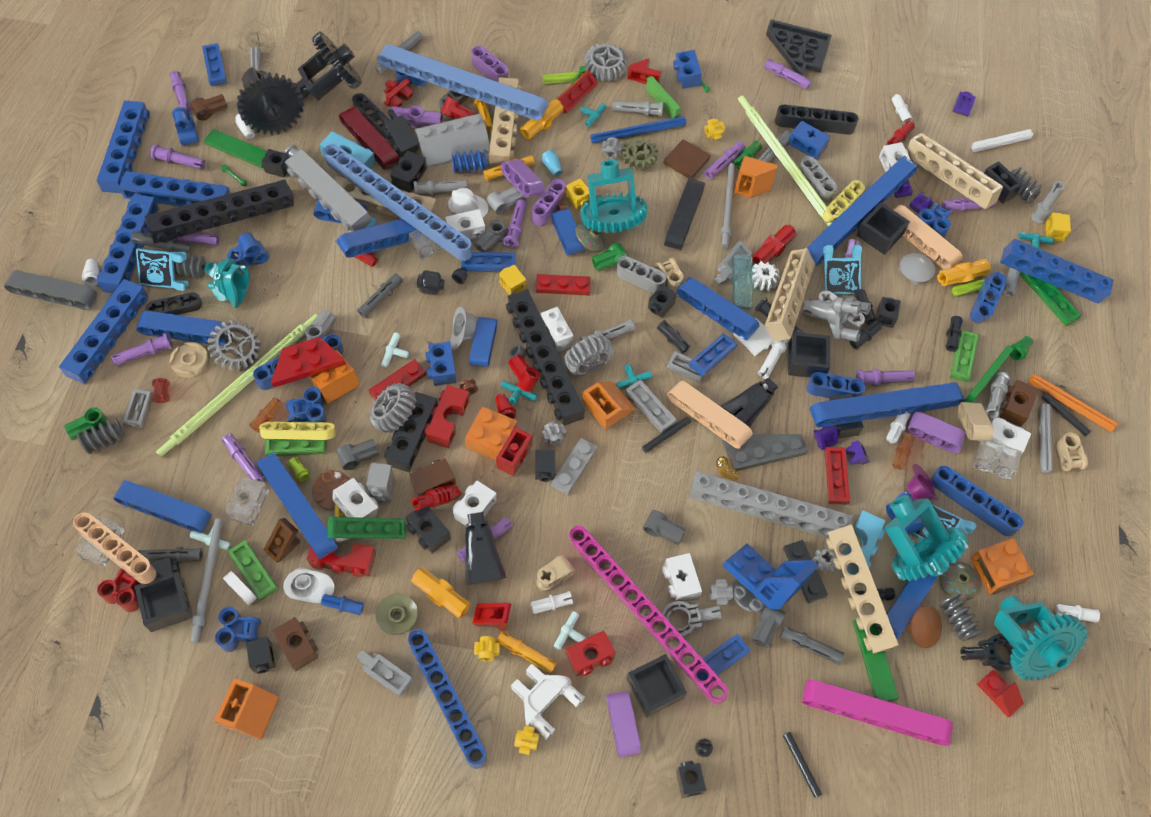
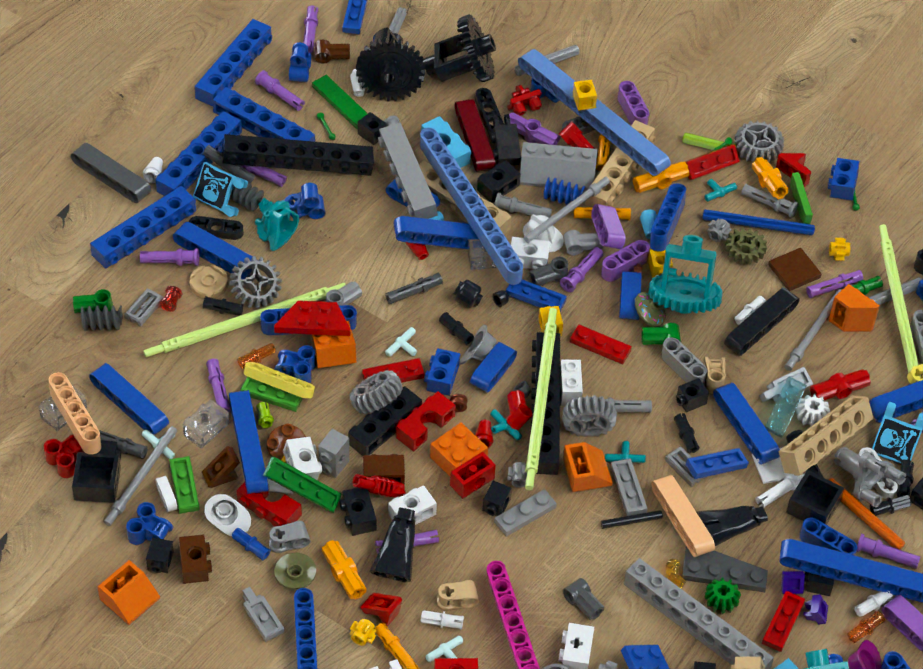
camera: 25 degrees right, 10 degrees down
(213, 378) = (223, 306): none -> black pin
(352, 455) = (317, 421): dark grey piece -> none
(377, 581) = (290, 536): none -> light grey piece
(434, 318) = (456, 328): none -> black pin
(451, 69) = (584, 95): none -> yellow brick
(494, 151) = (592, 190): none -> light grey bar
(542, 358) = (541, 399): none -> yellowish green axle
(567, 152) = (668, 217): none -> blue beam
(631, 89) = (769, 178): none -> light orange piece
(670, 208) = (749, 309): none -> white axle
(778, 467) = (722, 595): none -> green gear
(858, 354) = (870, 519): none -> orange axle

